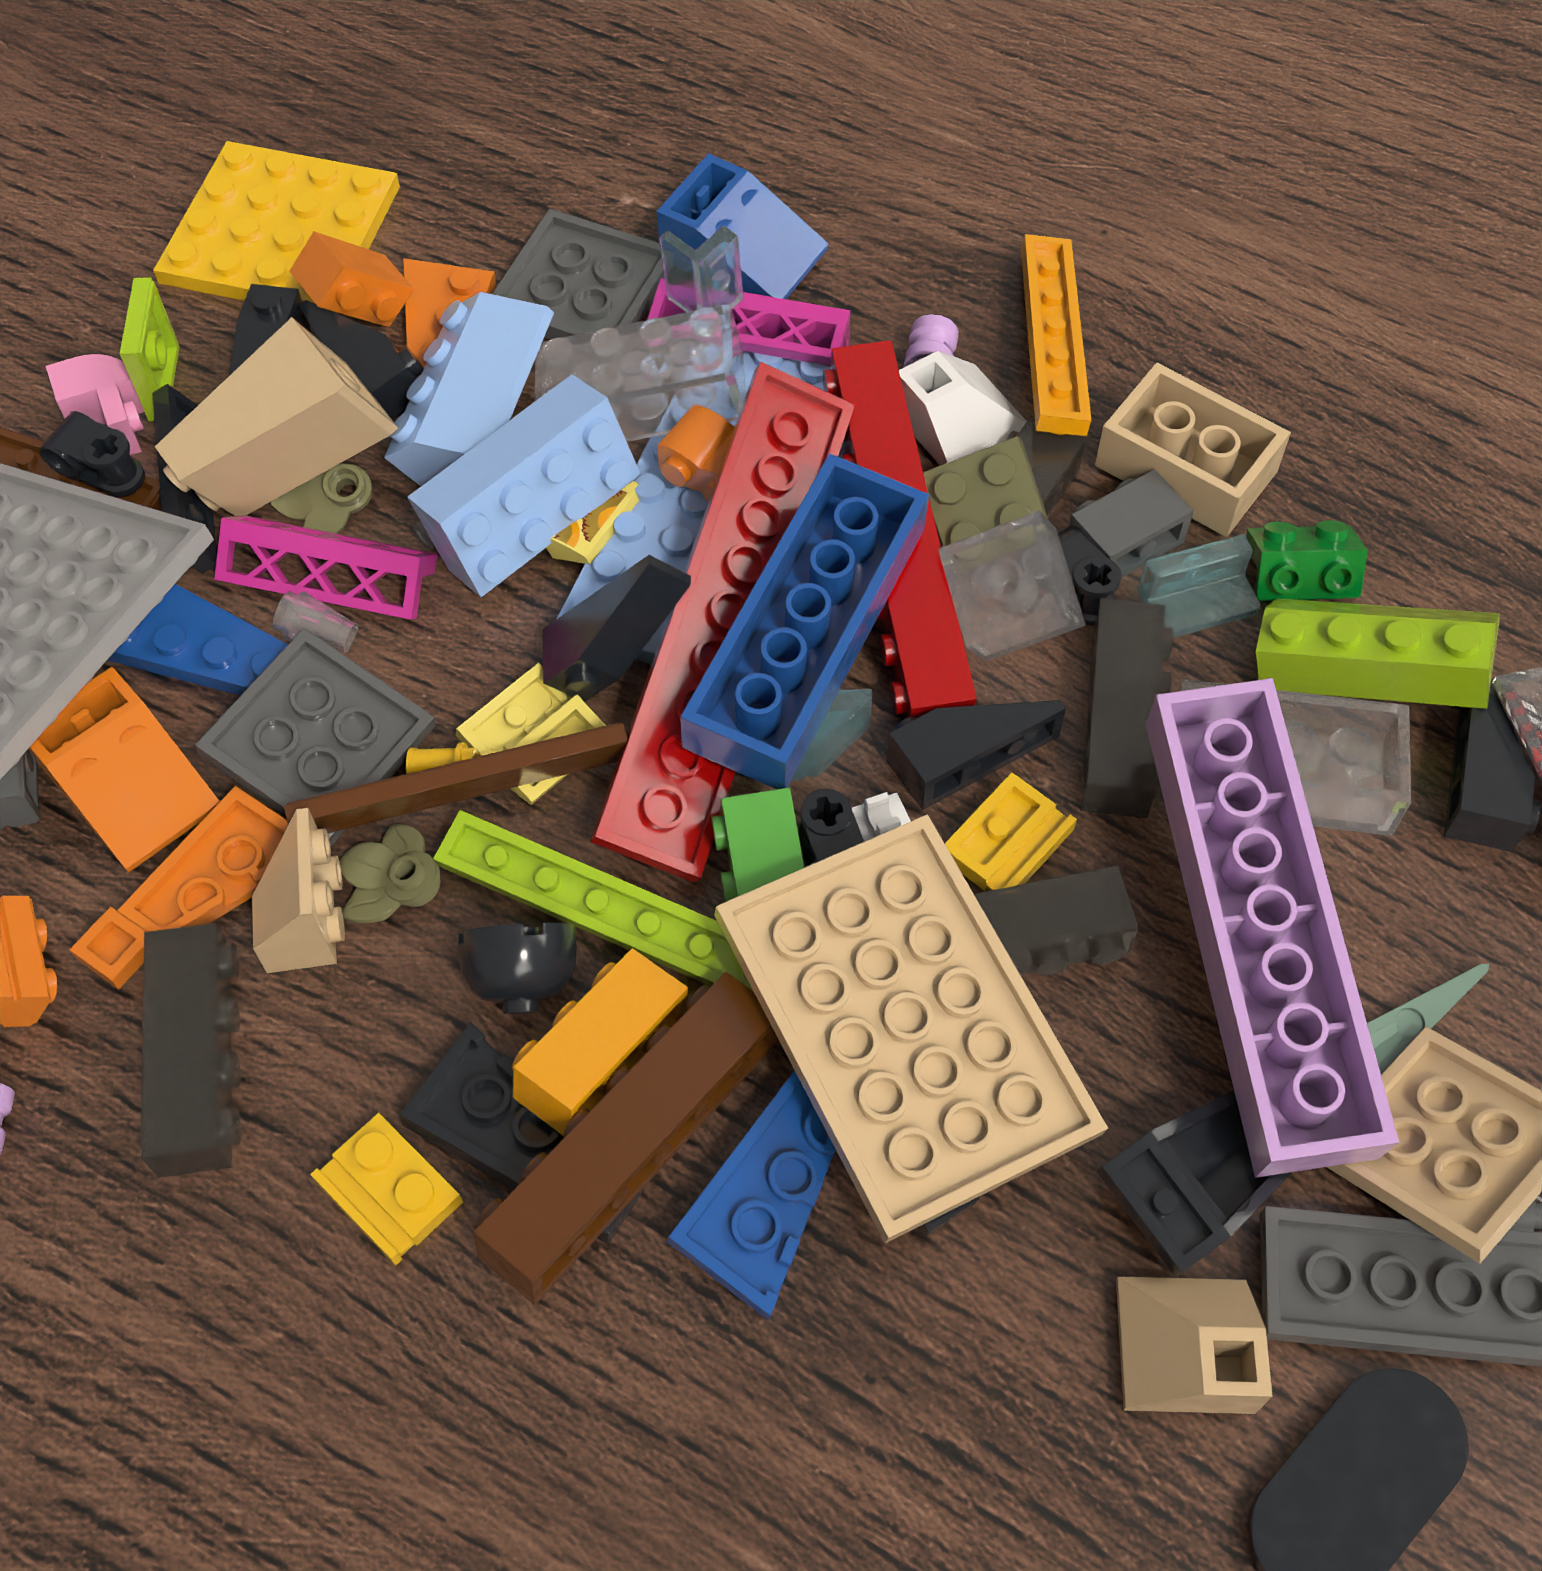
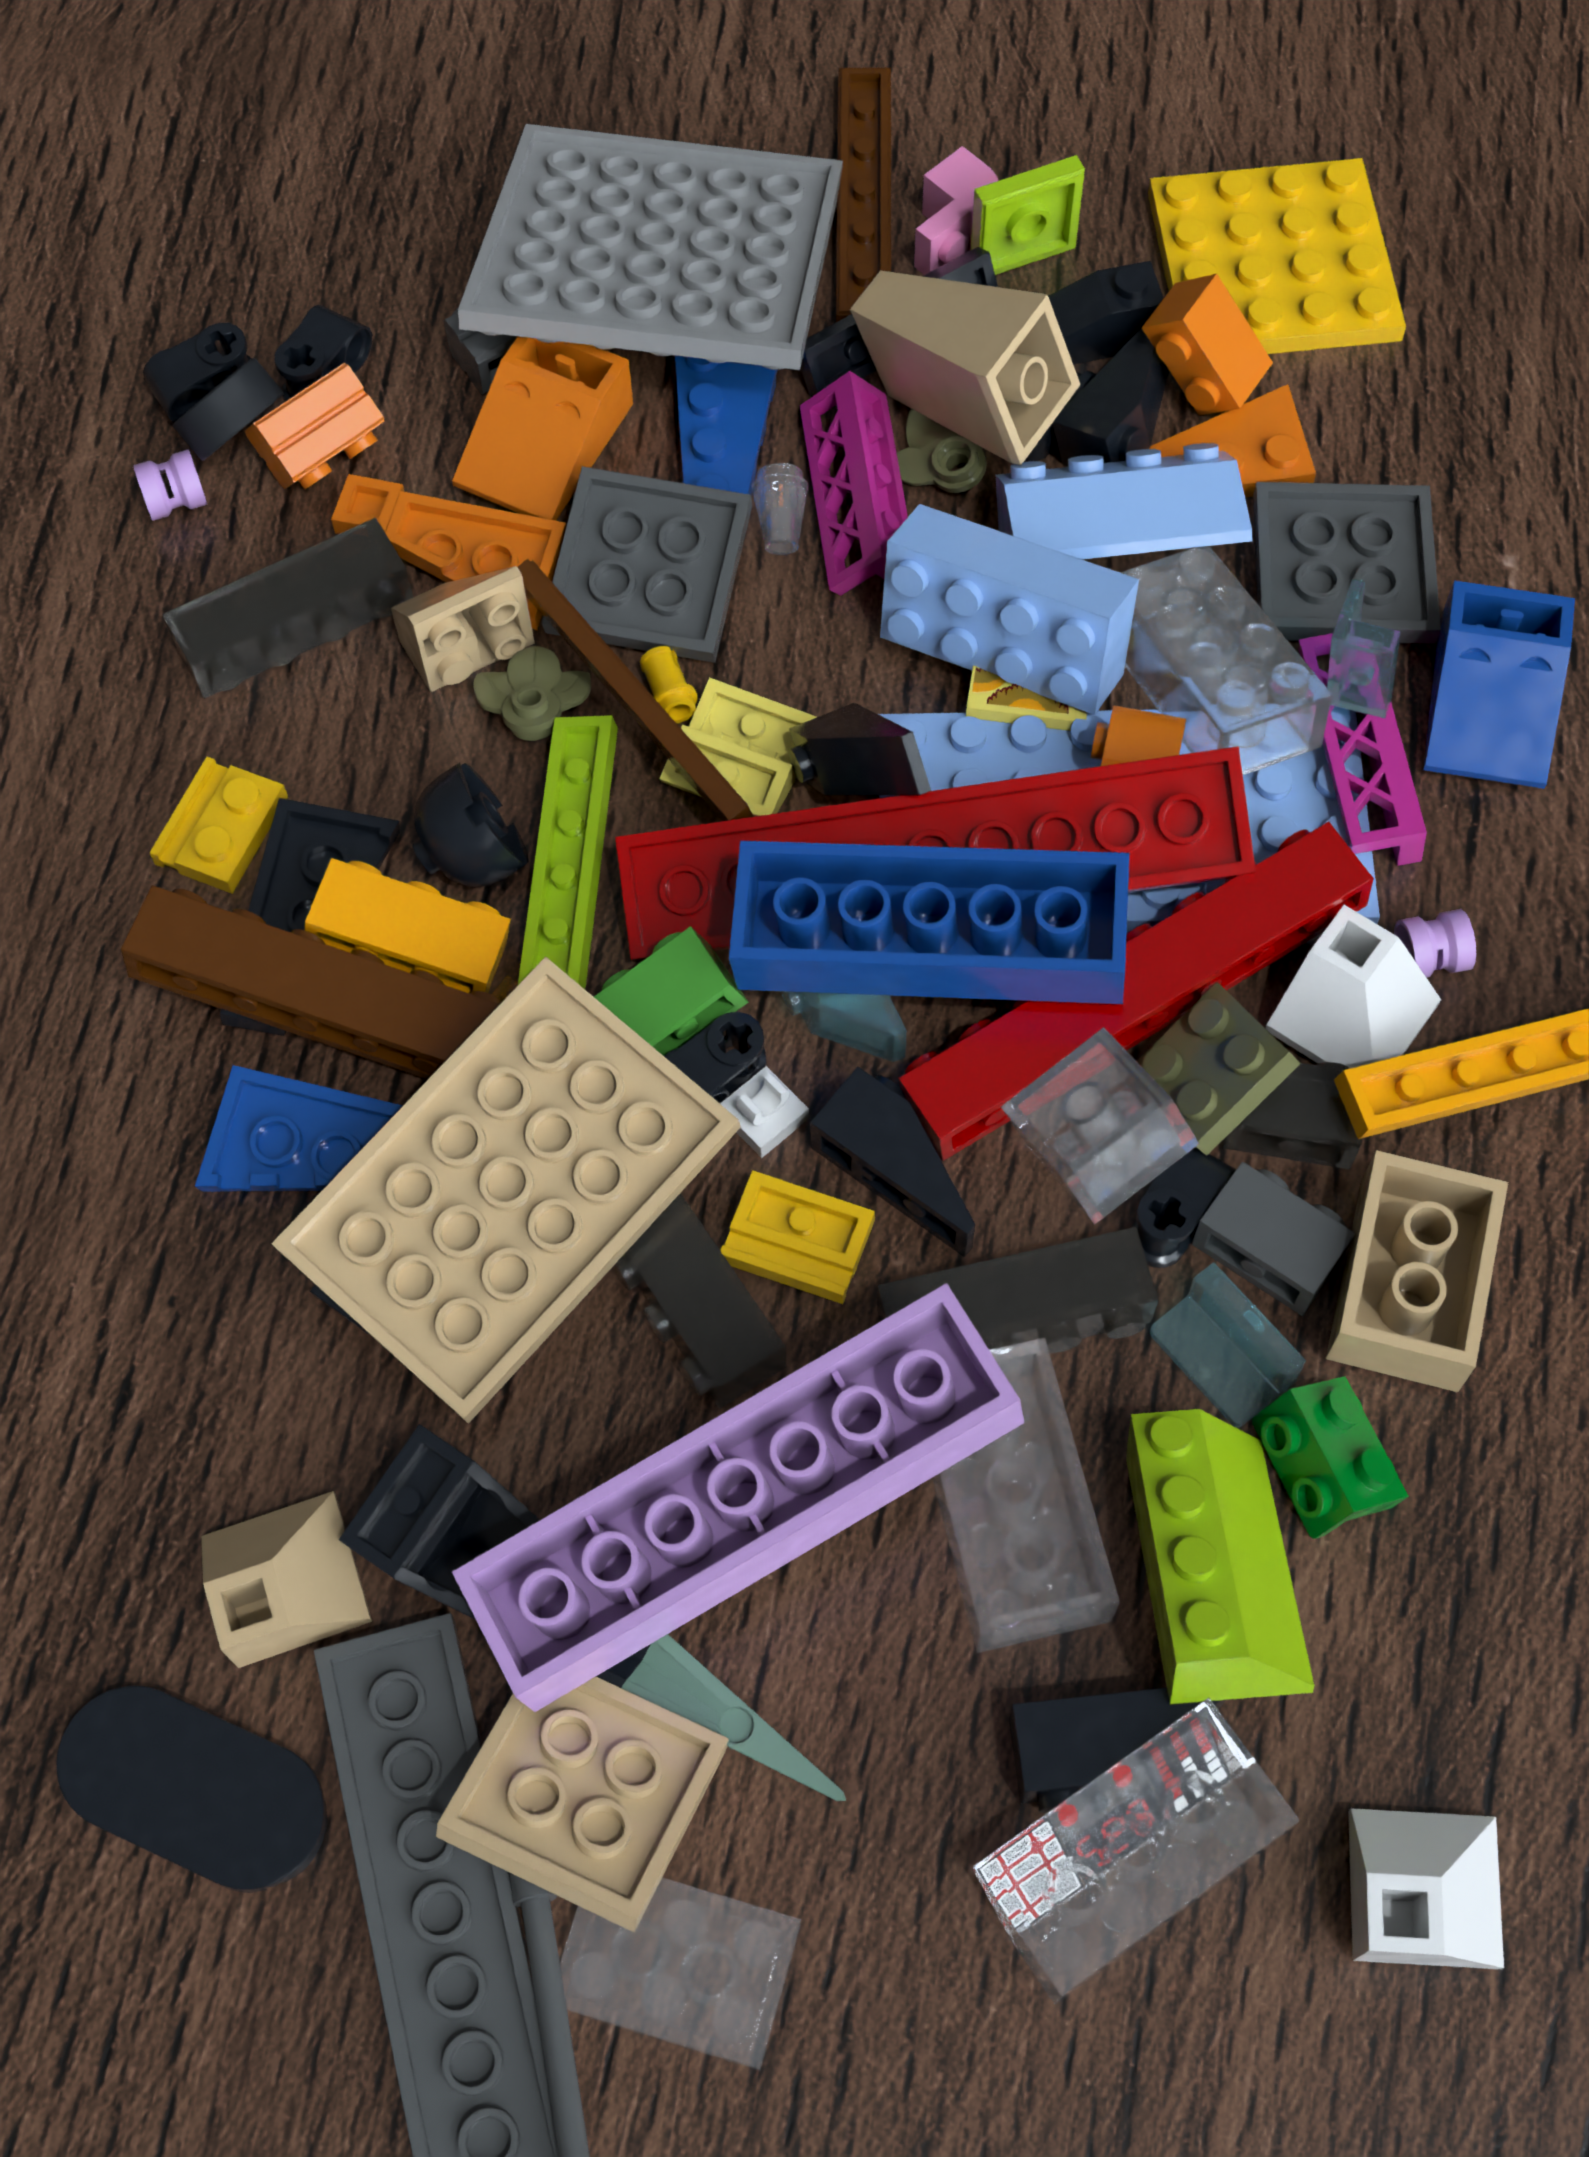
camera: 70 degrees right, 5 degrees up
(93, 455) = (879, 232): black piece -> none

